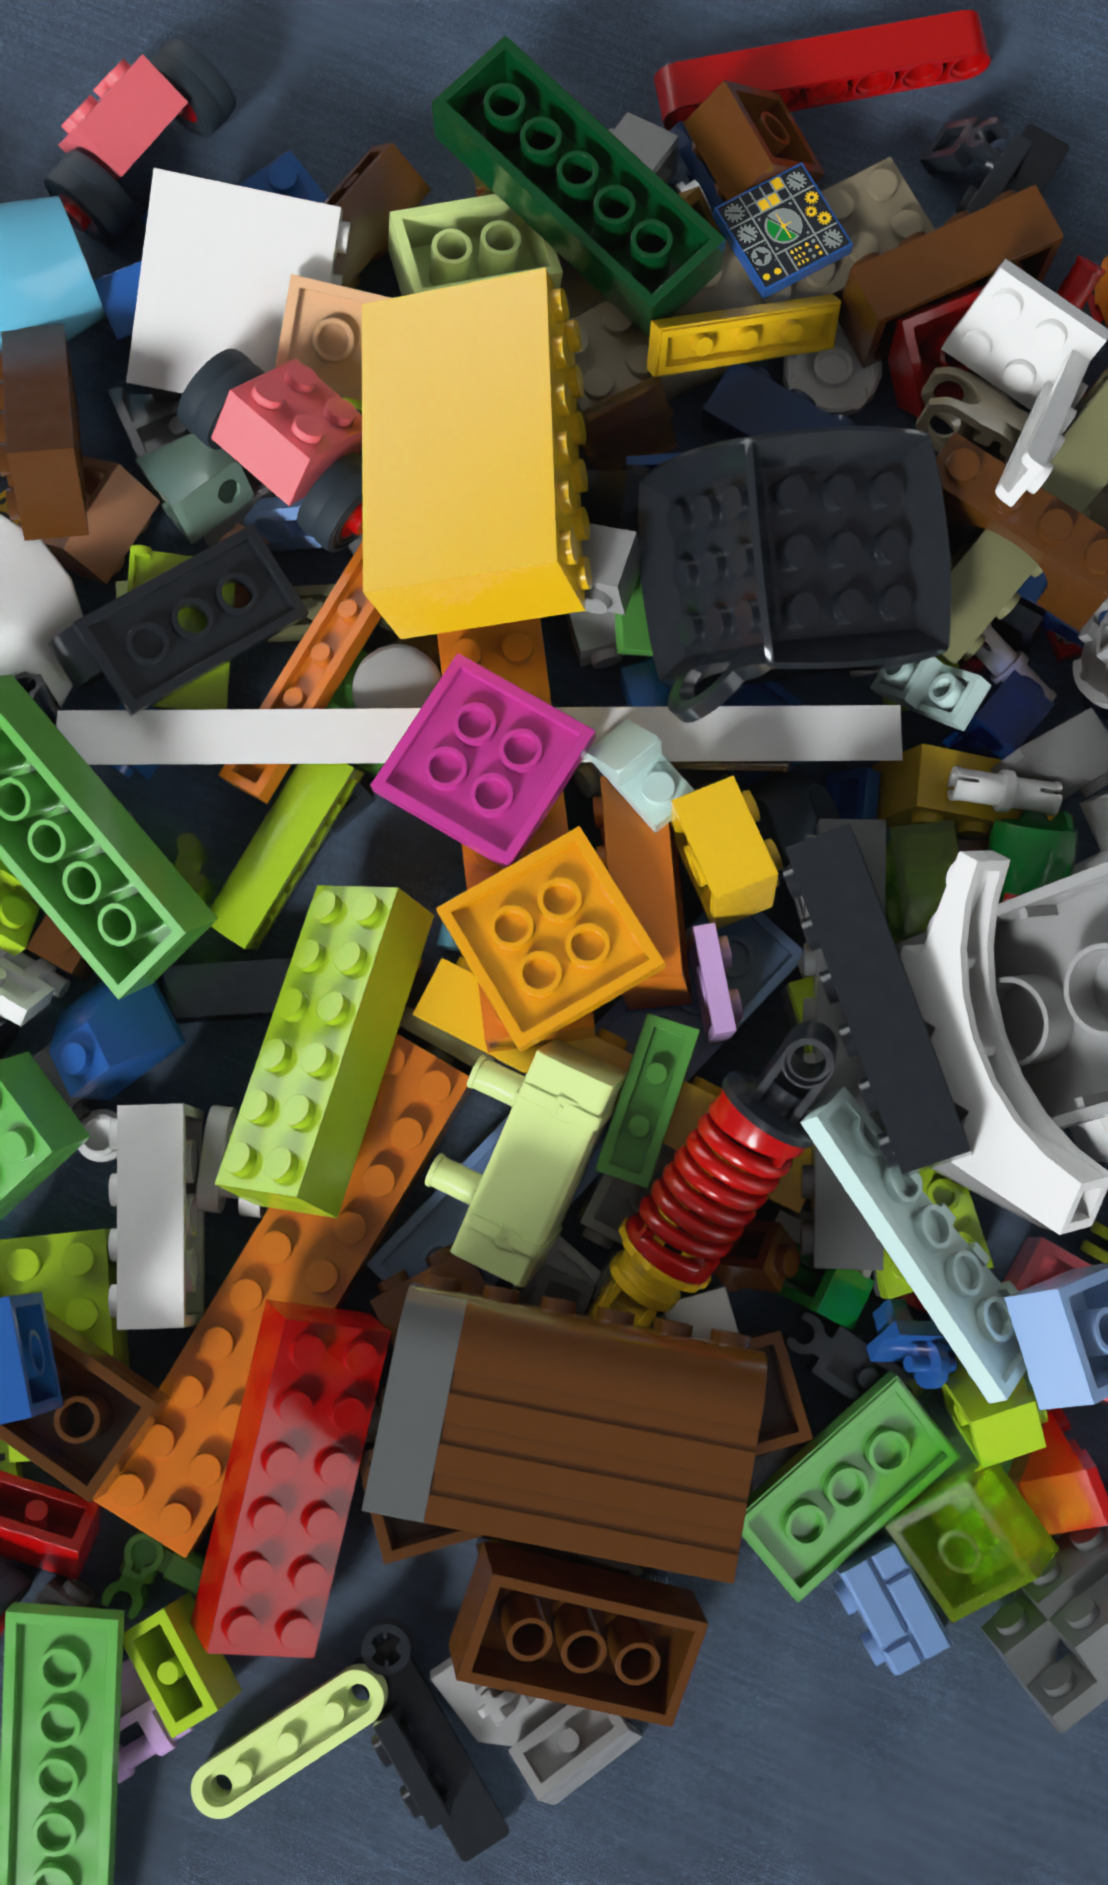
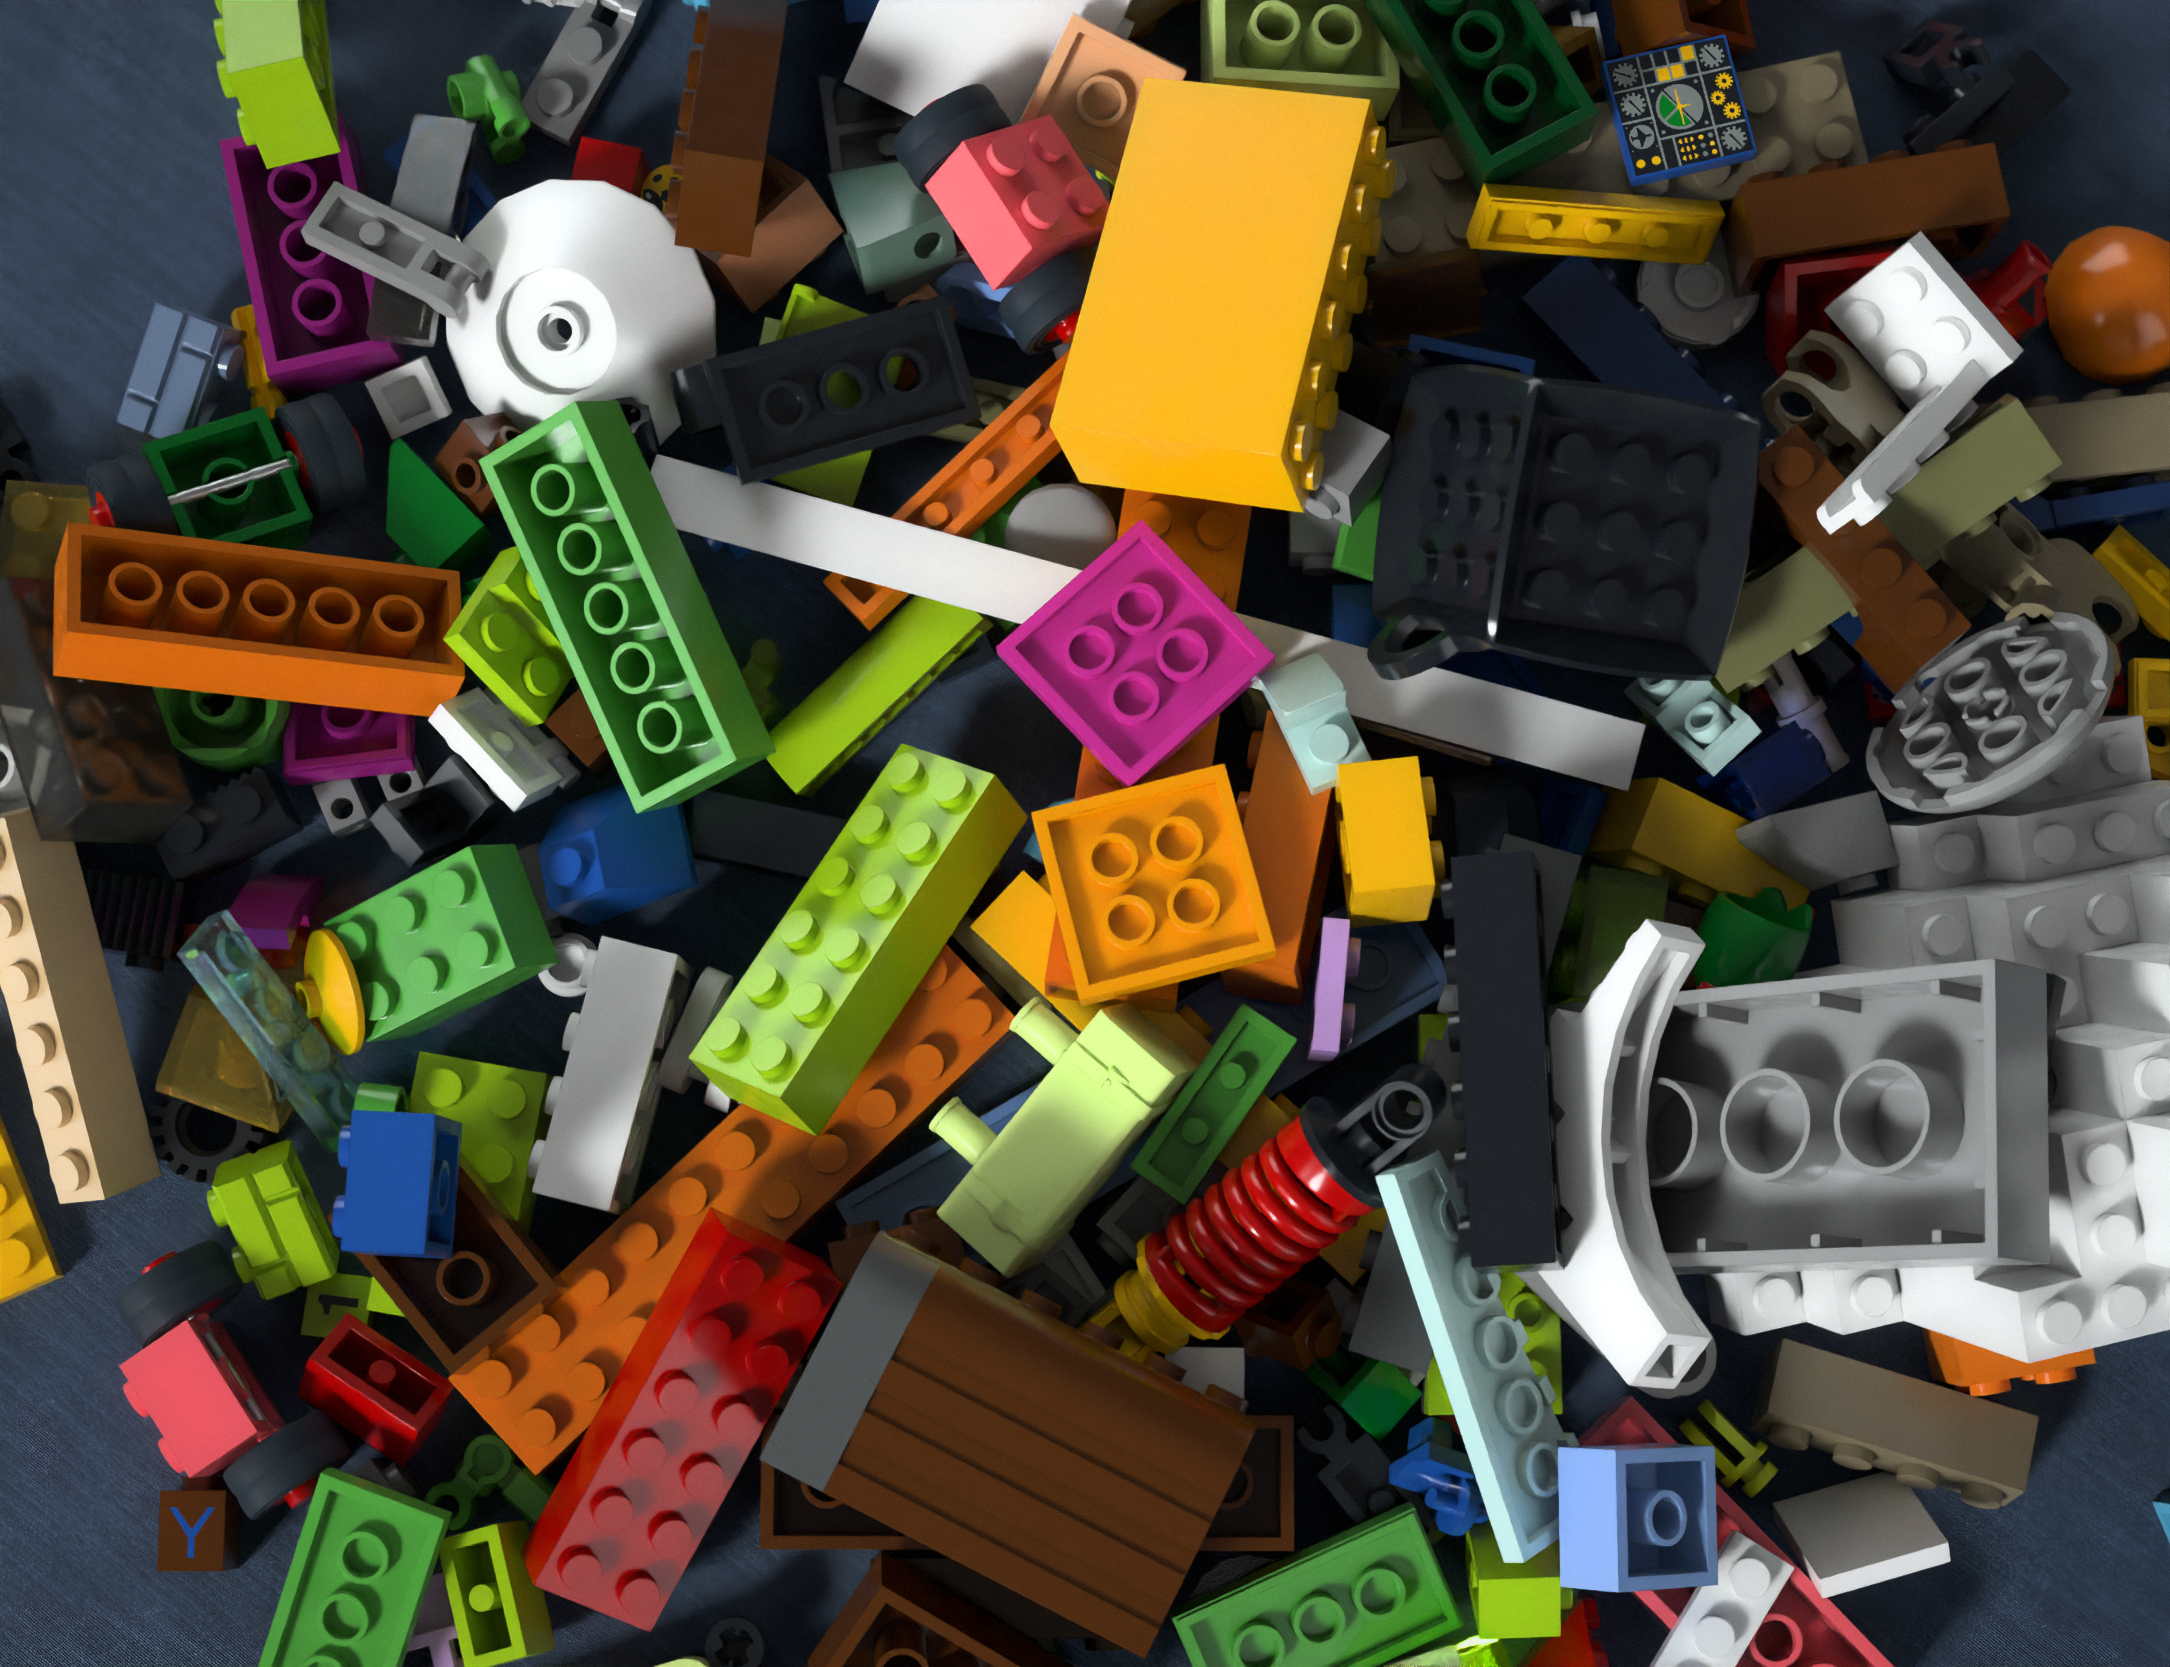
camera: 20 degrees right, 0 degrees up
(1004, 790) = (1741, 860): white pin -> none

